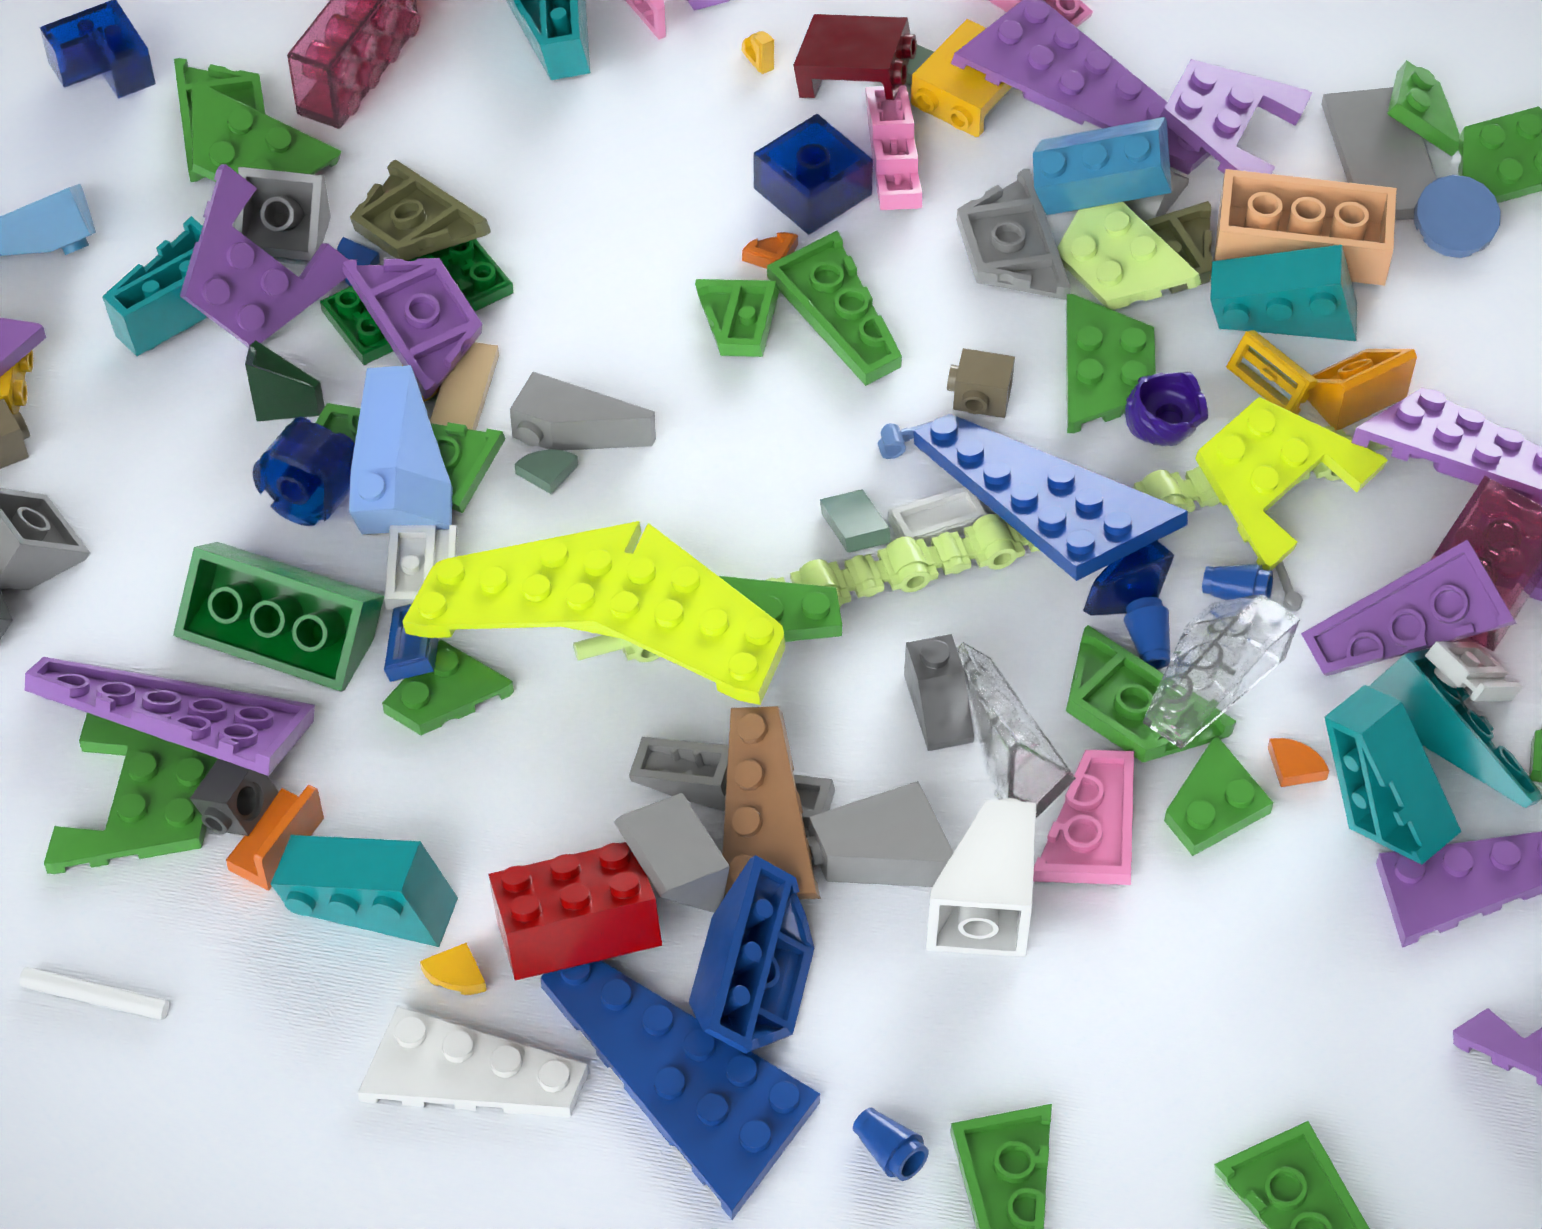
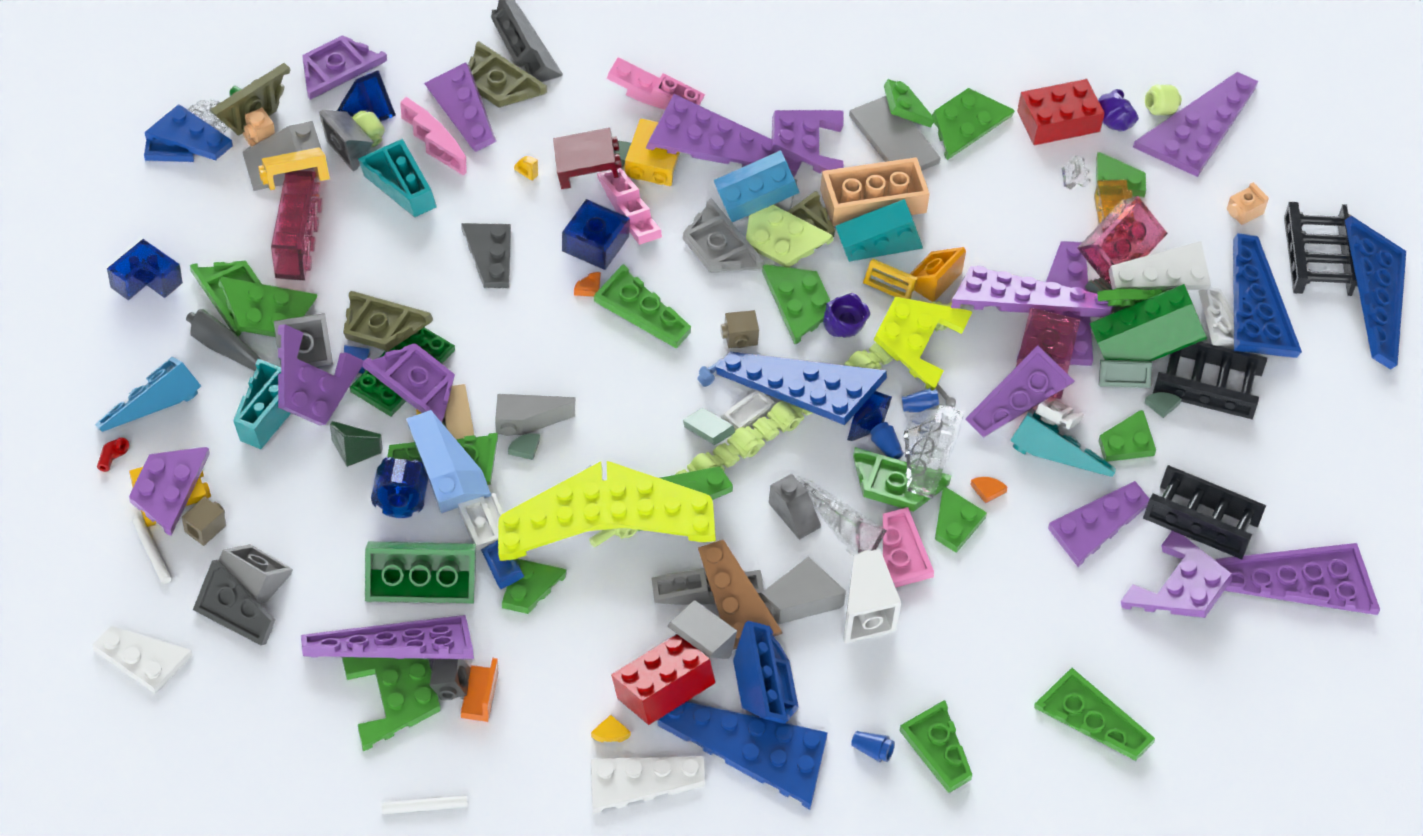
camera: 25 degrees left, 0 degrees up
(162, 173) = (220, 338): none -> dark grey piece
(367, 885) = (545, 701): teal wedge -> none
(642, 161) = (490, 252): none -> dark grey wing
(738, 313) = (588, 327): bright green wing -> none
(1388, 777) = (1044, 482): teal wedge -> none
(1457, 216) = (949, 162): medium blue tile -> none

